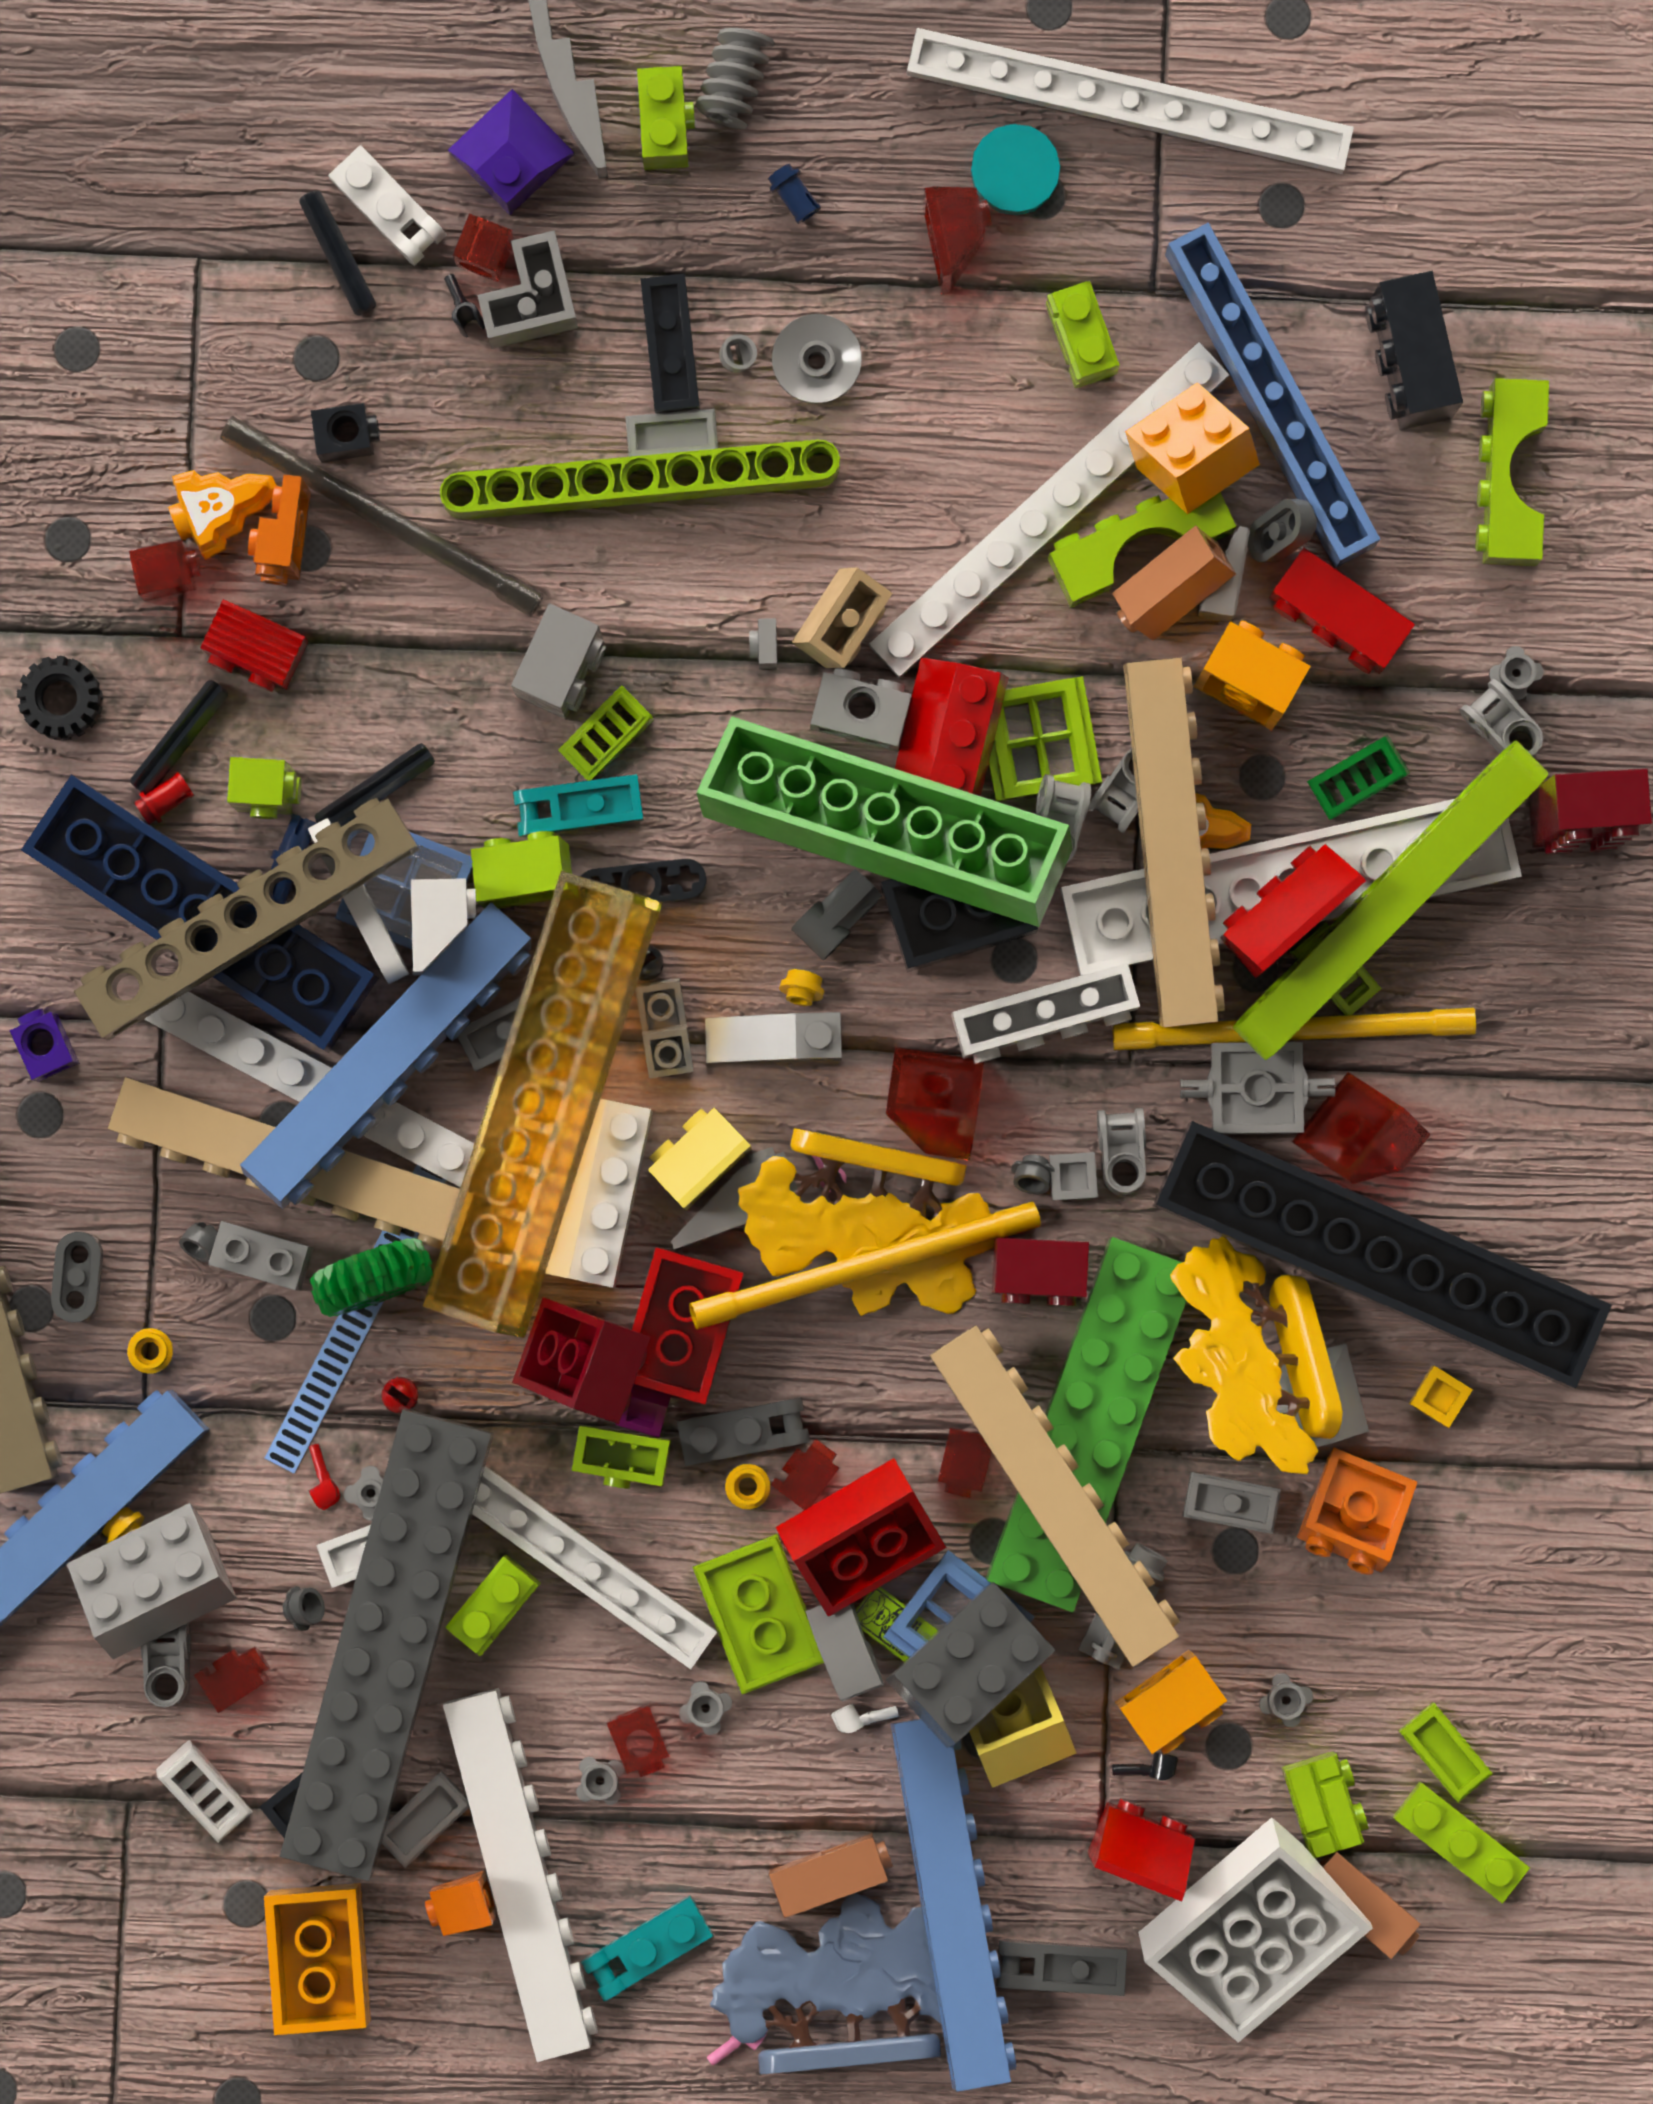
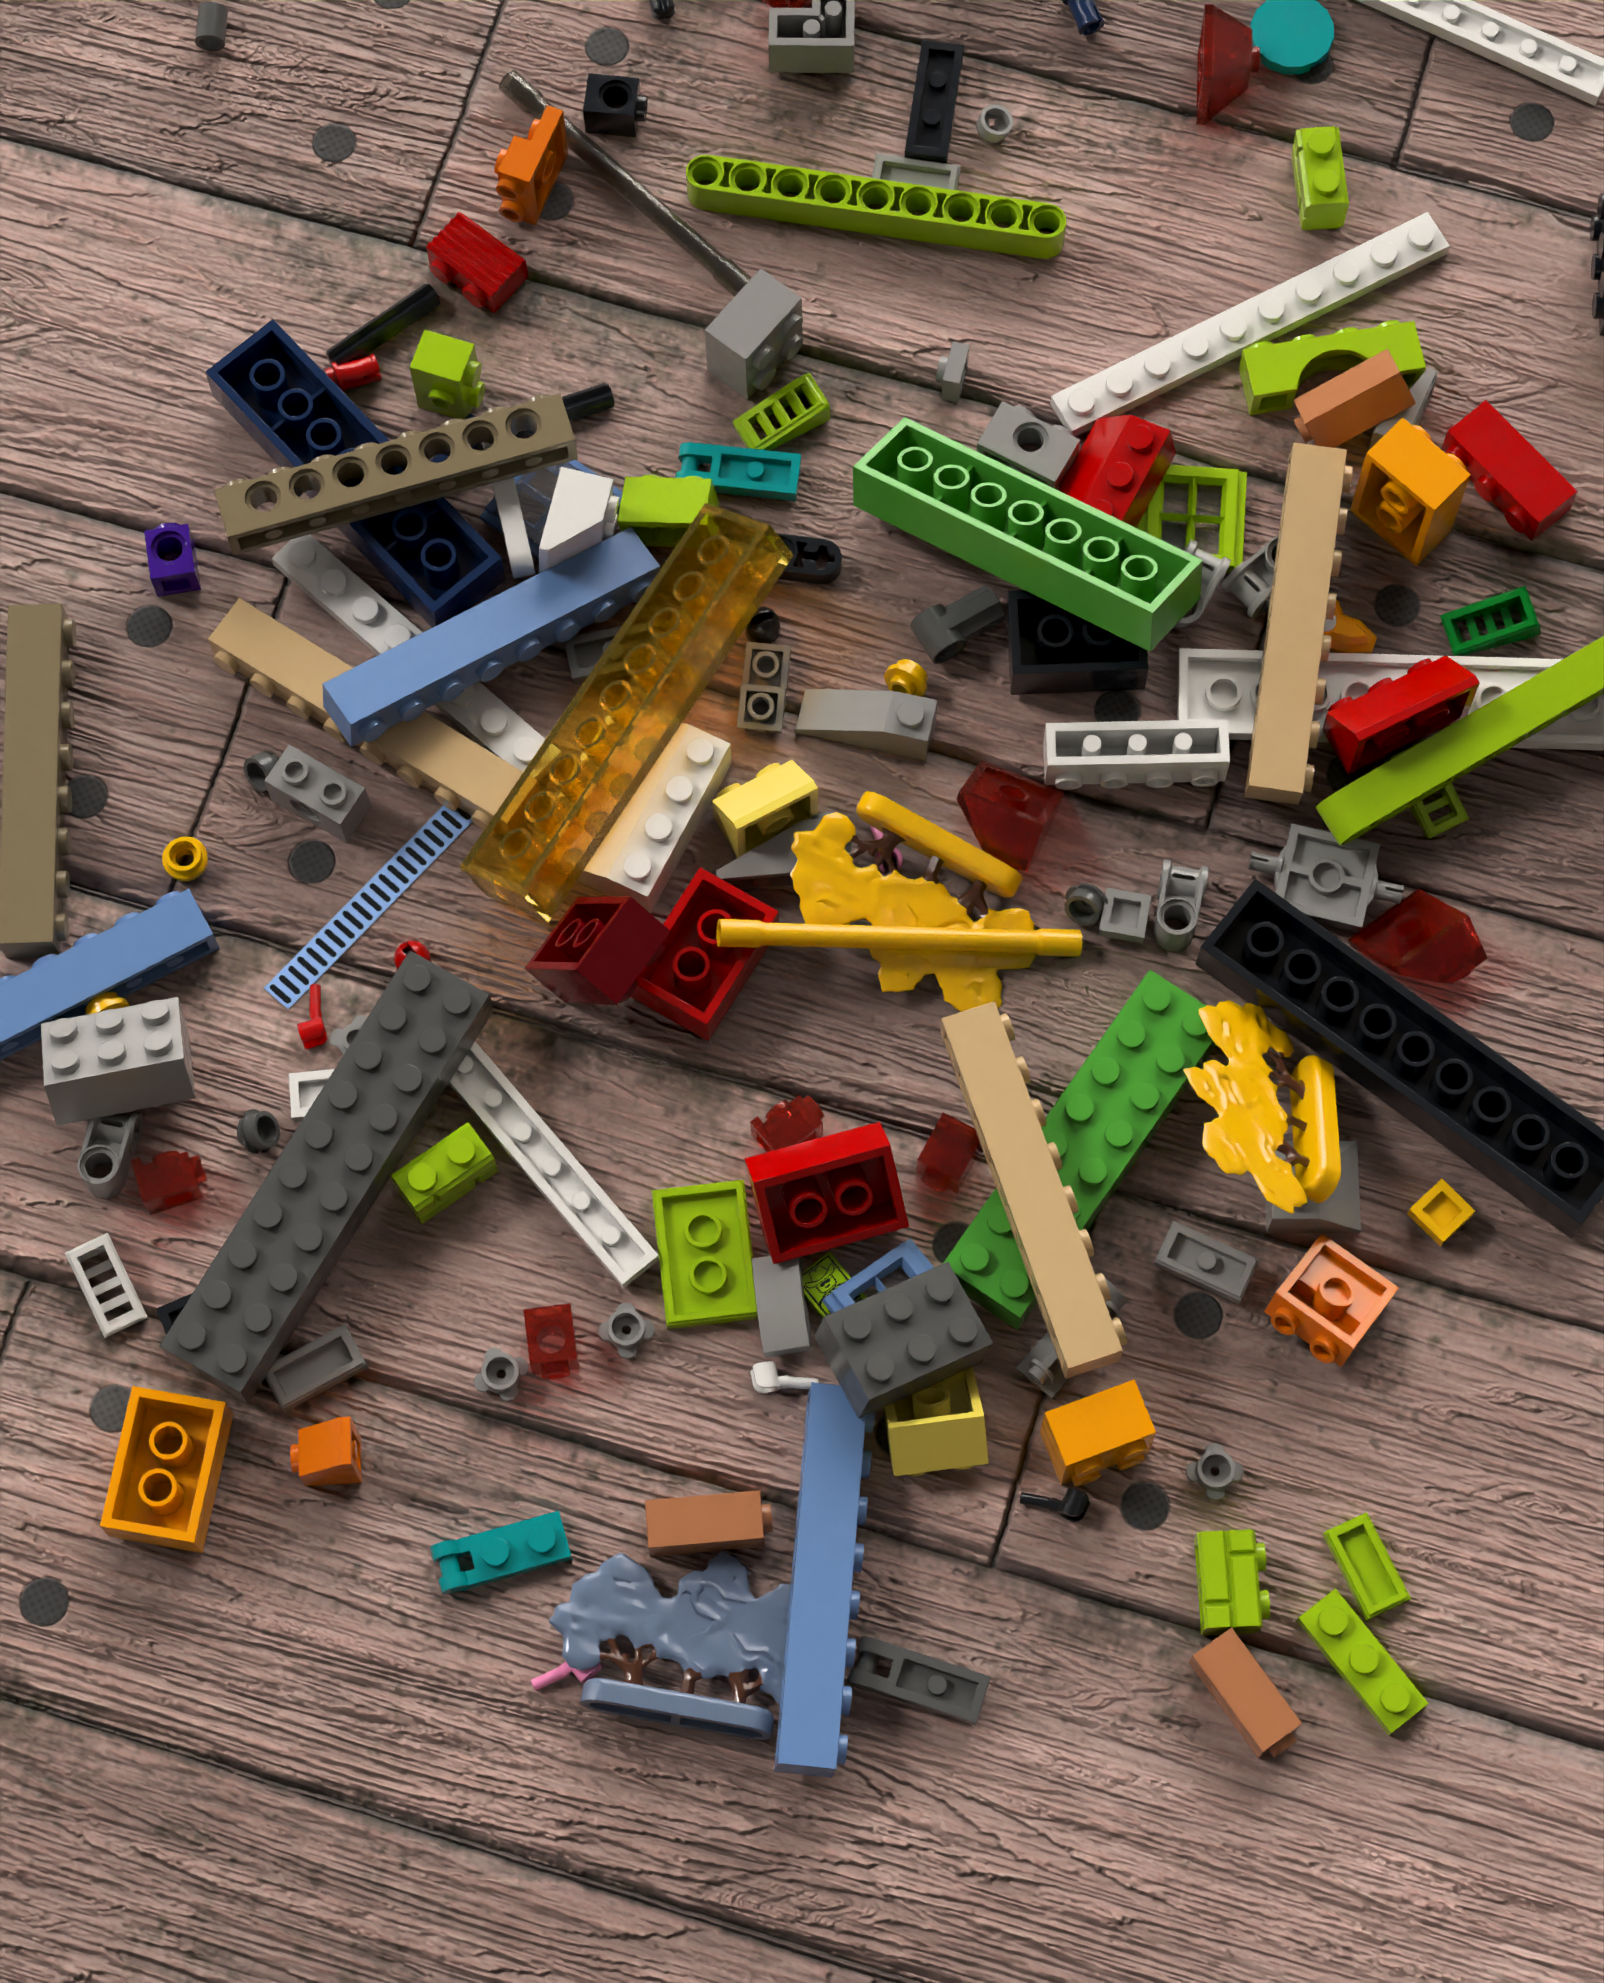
camera: 15 degrees right, 15 degrees down
(40, 679) = (279, 245): black tyre -> none
(75, 1276) = (135, 775): dark grey plate -> none
(165, 569) = (414, 181): clear red brick -> none
(216, 507) = (474, 140): light orange rock -> none
(371, 1277) = (416, 830): green gear -> none
(464, 311) = (753, 34): black hand -> none
(518, 1874) = (393, 1444): white brick -> none
(621, 1456) = (611, 1061): lime brick -> none
(646, 1411) = (645, 1027): magenta plate -> none
(741, 1432) = (735, 1075): dark grey plate -> none
(747, 1501) = (723, 1115): yellow plate -> none
(816, 336) = (1071, 128): light grey dish -> none
(842, 618) = (1031, 362): tan brick -> none
(1040, 1269) = (1070, 984): dark red brick -> none
(1143, 1849) = (1030, 1573): red slope -> none
(1192, 448) = (1400, 287): light orange brick -> none
(1253, 1931) = (1126, 1687): white slope -> none
(1271, 394) = (1486, 268): medium blue brick -> none
(1281, 530) = (1468, 381): dark grey plate -> none
(1435, 1022) = (1515, 861): yellow piece -> none

